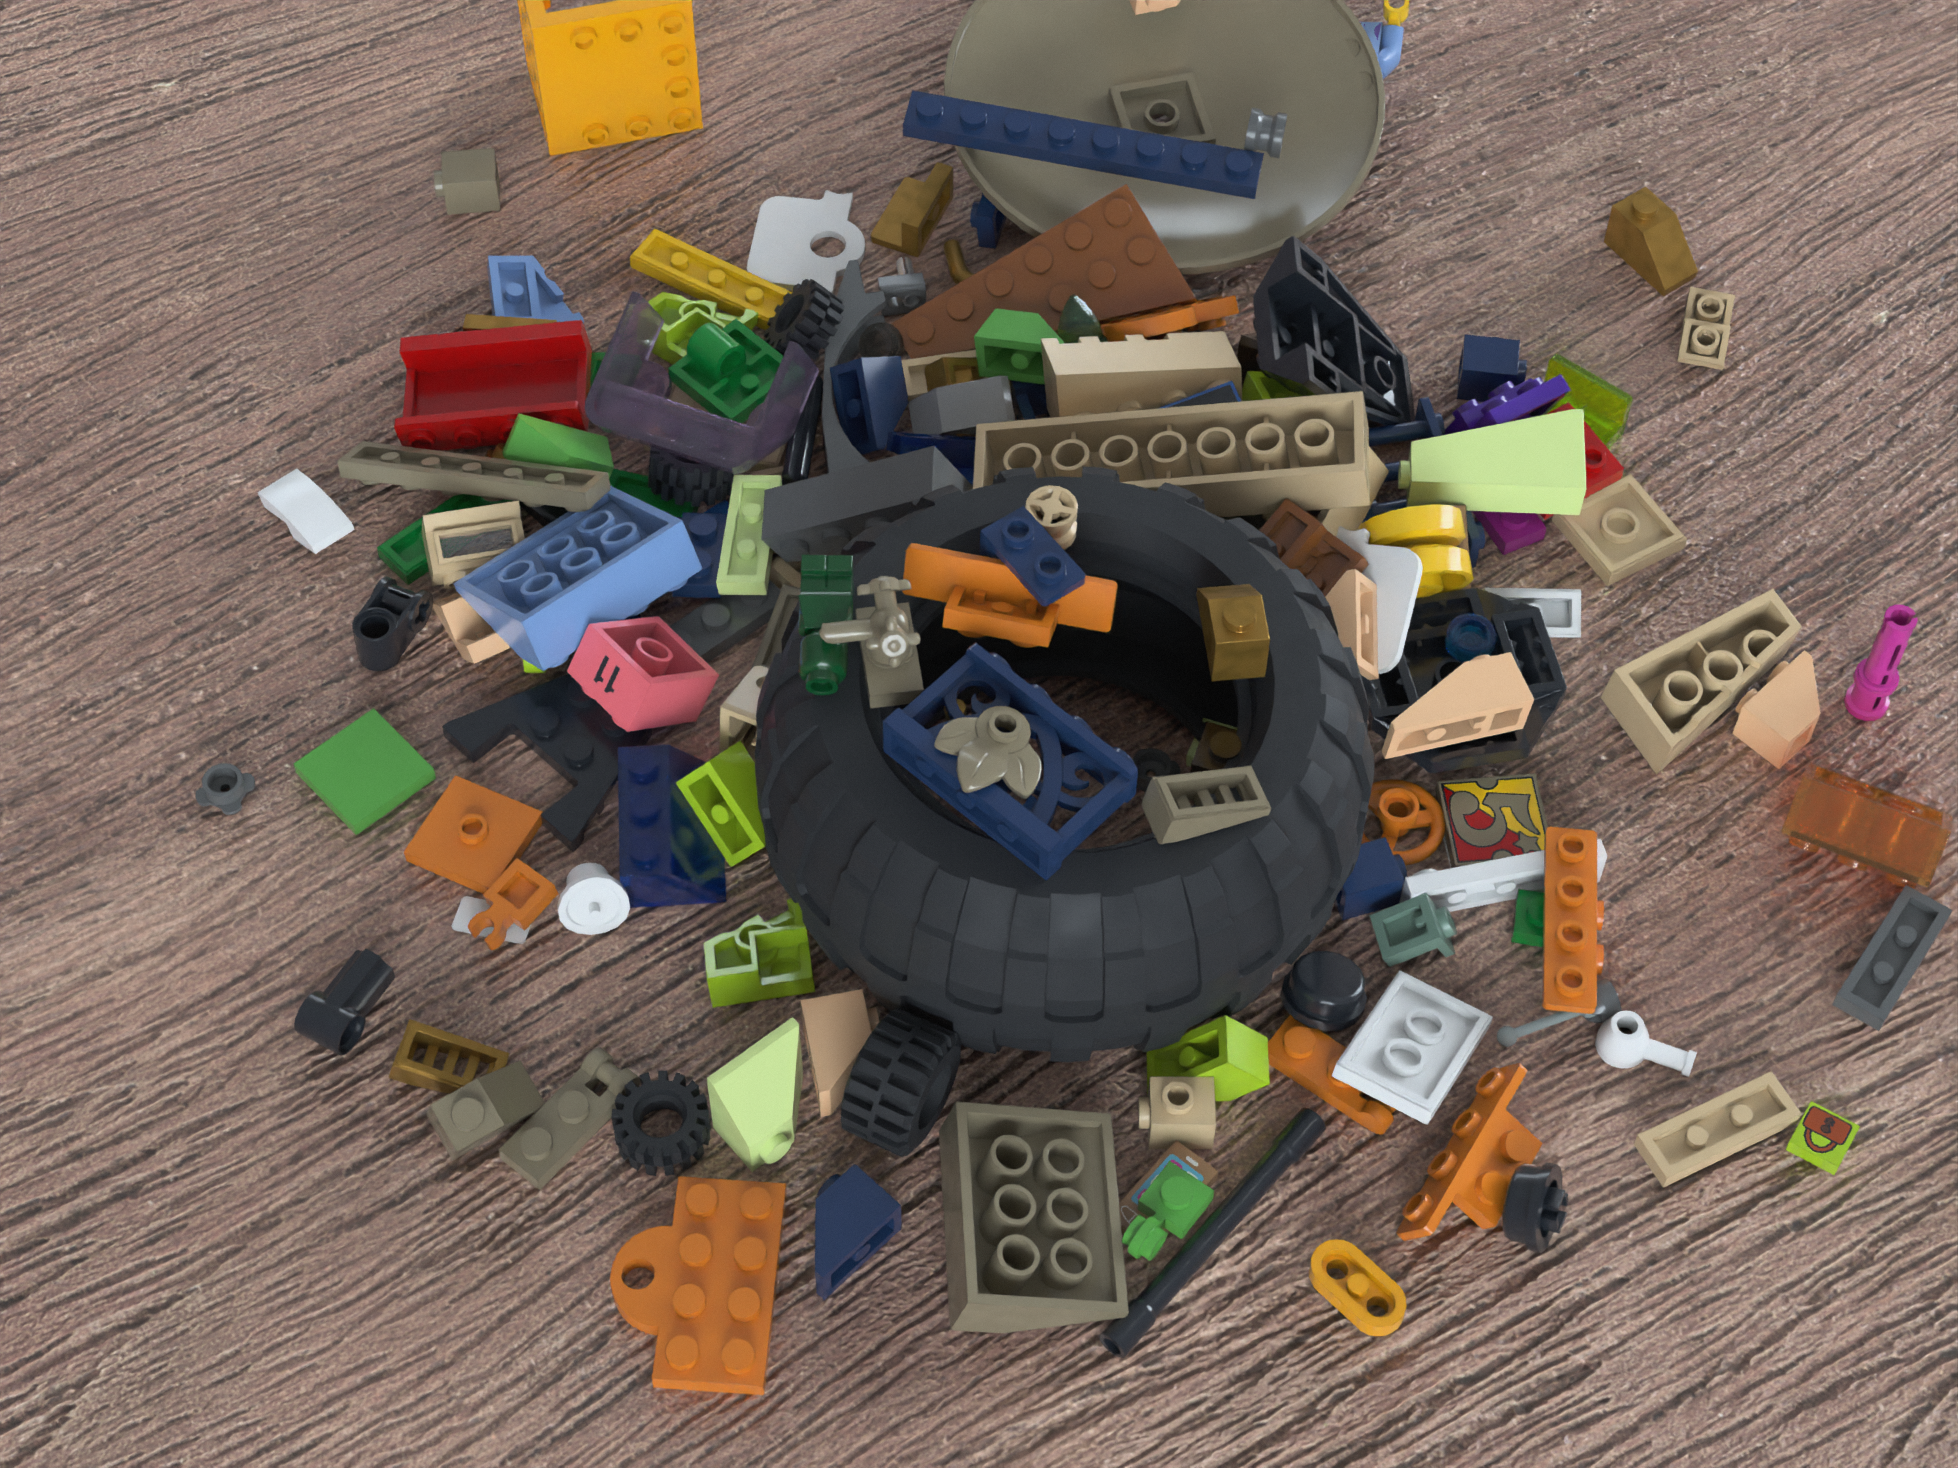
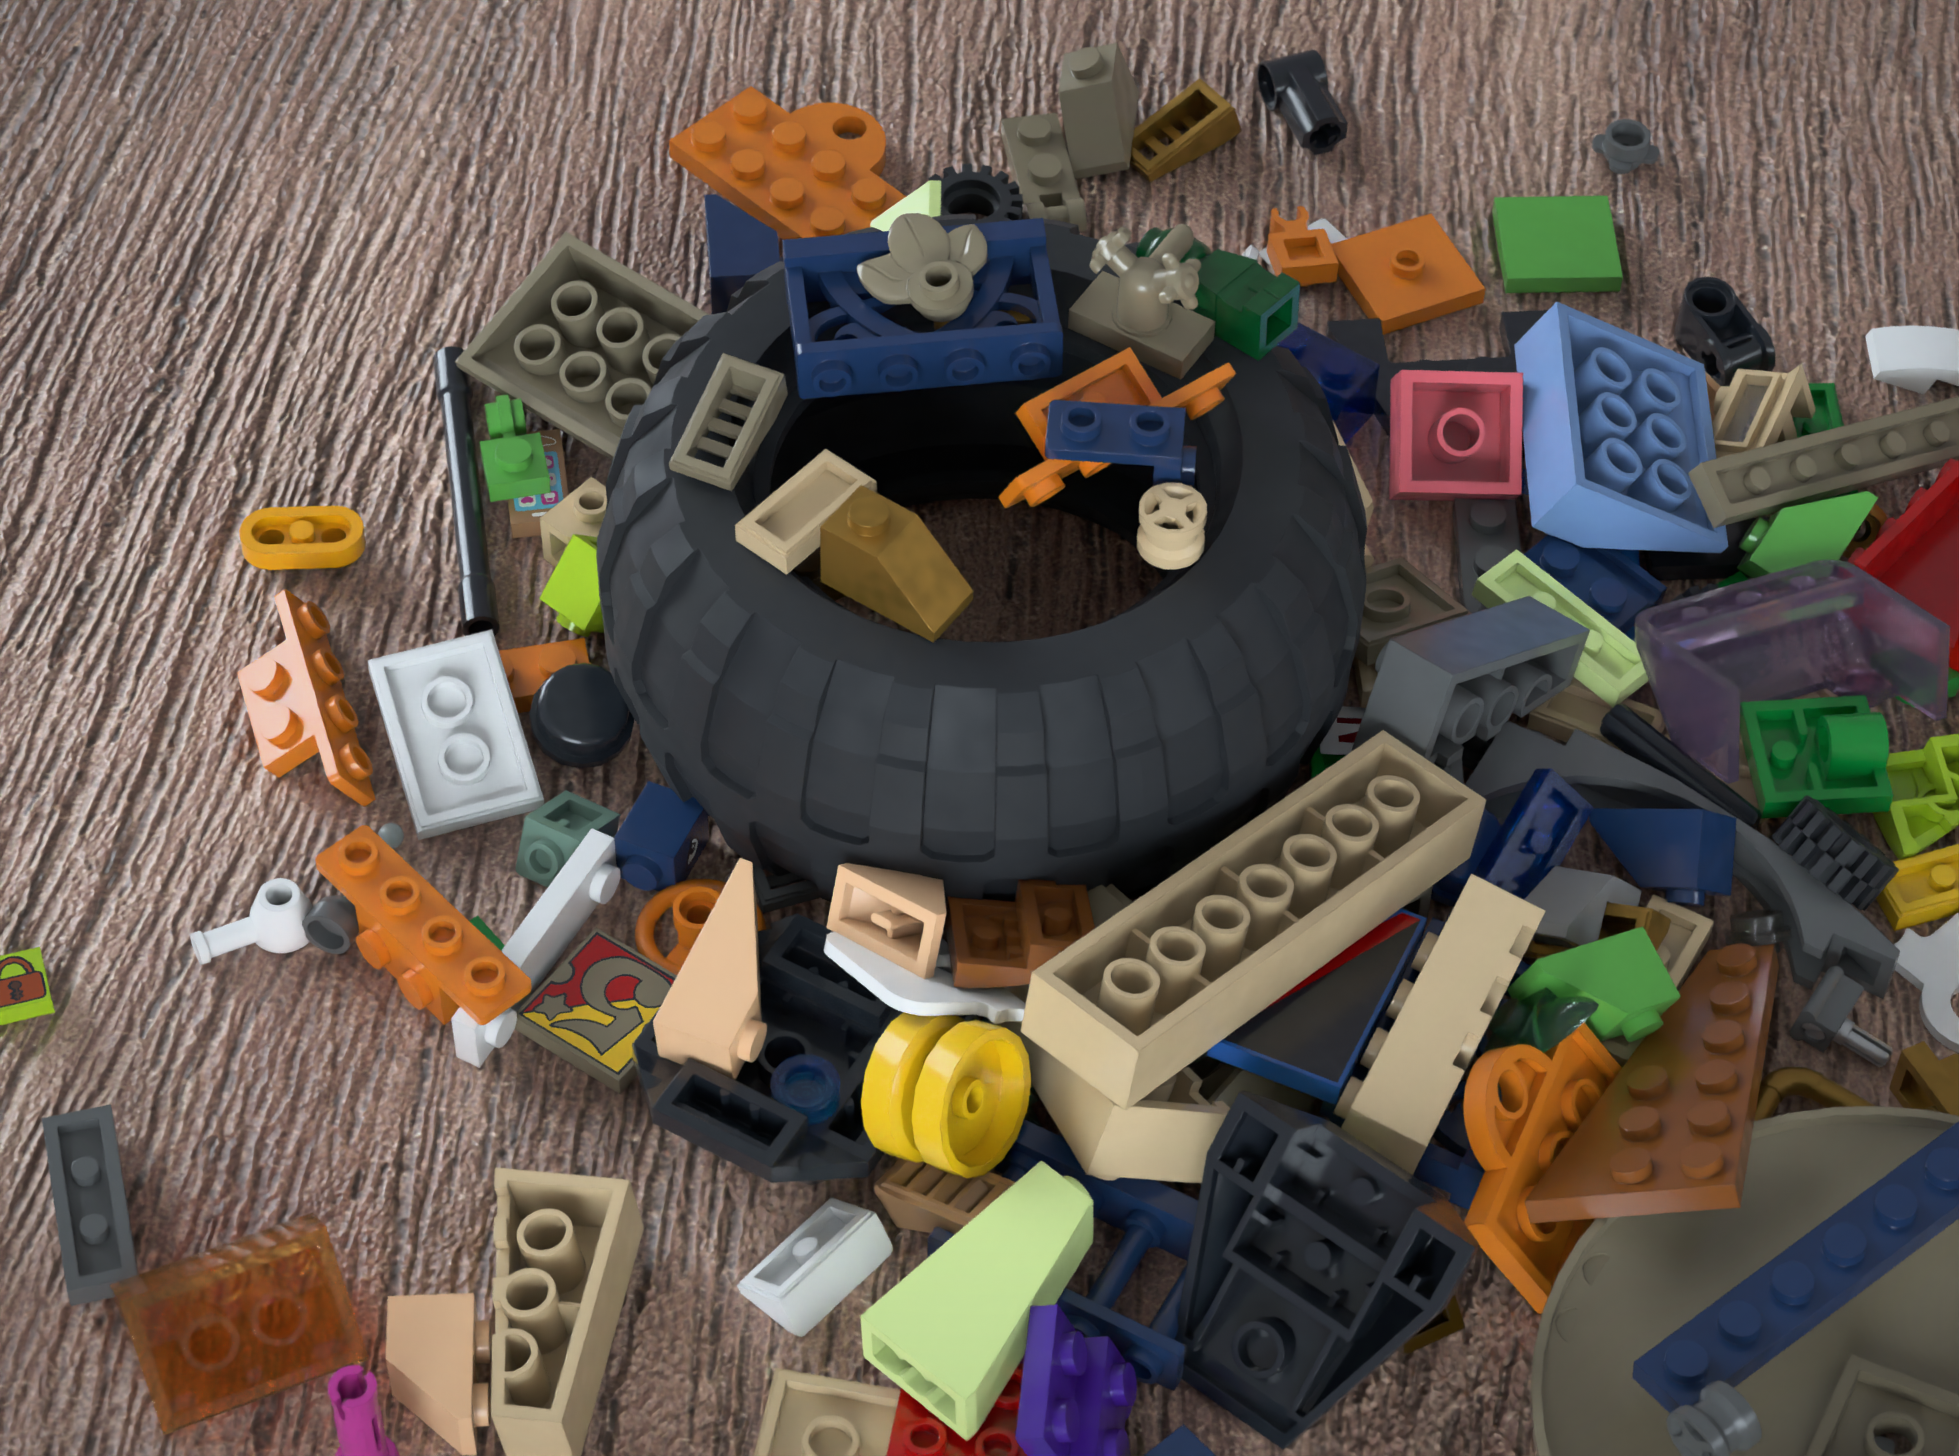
camera: 130 degrees right, 5 degrees down
(1226, 715) = (789, 521): none -> tan tile
(1533, 1205) = (211, 688): black piece -> none
(1717, 1129) = (115, 904): tan plate -> none

